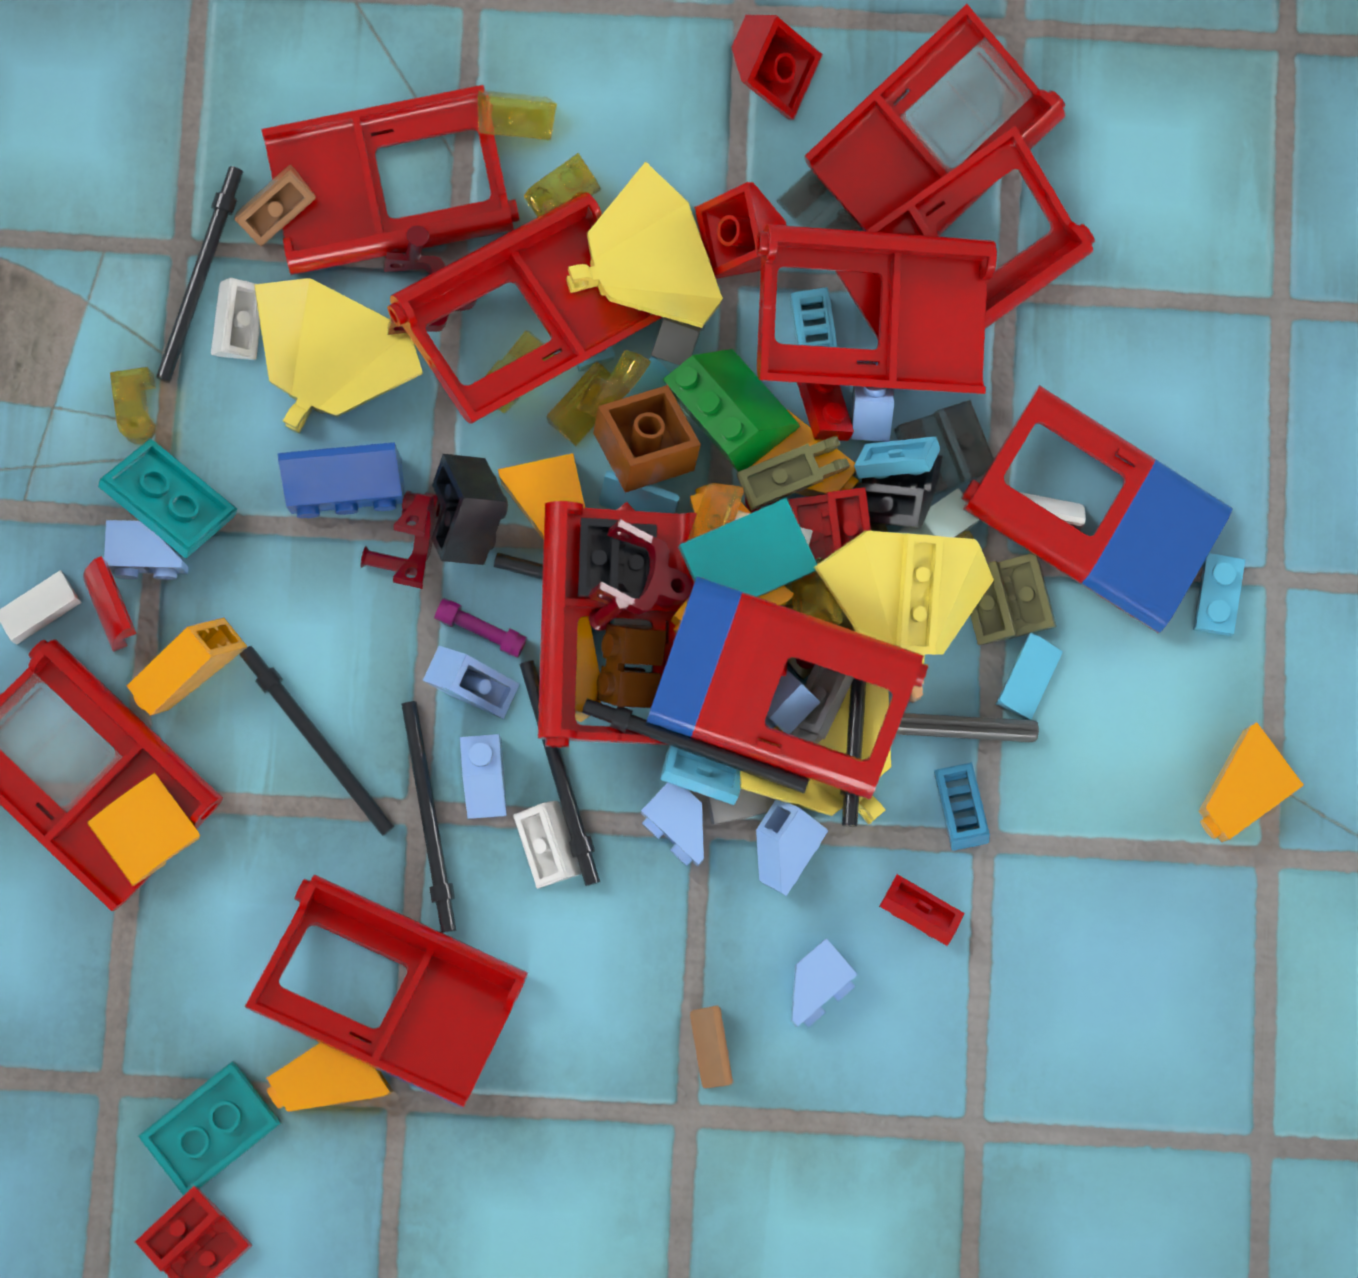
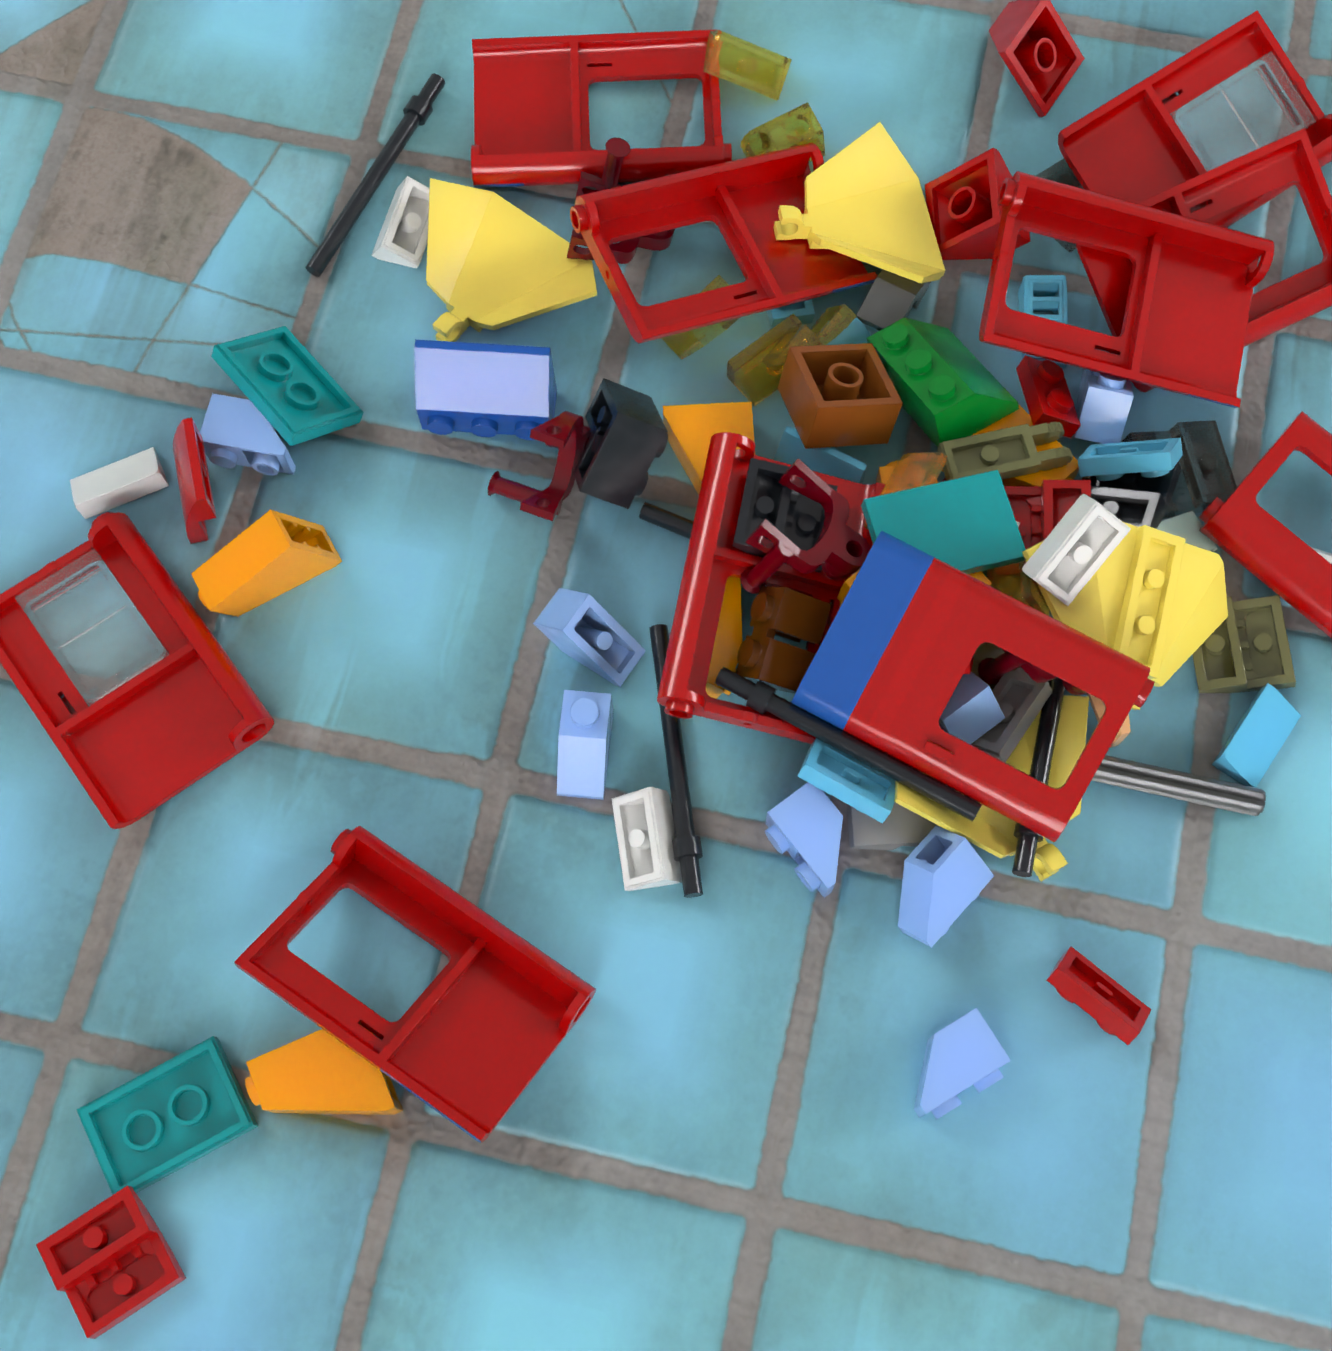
camera: 15 degrees right, 10 degrees down
(131, 403) = (271, 284): clear yellow leg -> none
(143, 829) = (172, 739): light orange slope -> none
(270, 681) = (359, 603): black bar -> none
(274, 206) = (470, 116): medium nougat slope -> none
(441, 891) = (509, 873): black bar -> none
(451, 613) = (580, 560): magenta bar -> none
(711, 1047) = (809, 1124): medium nougat slope -> none
(854, 564) = (1075, 549): none -> white slope
(966, 838) = (1161, 908): dark azure slope -> none

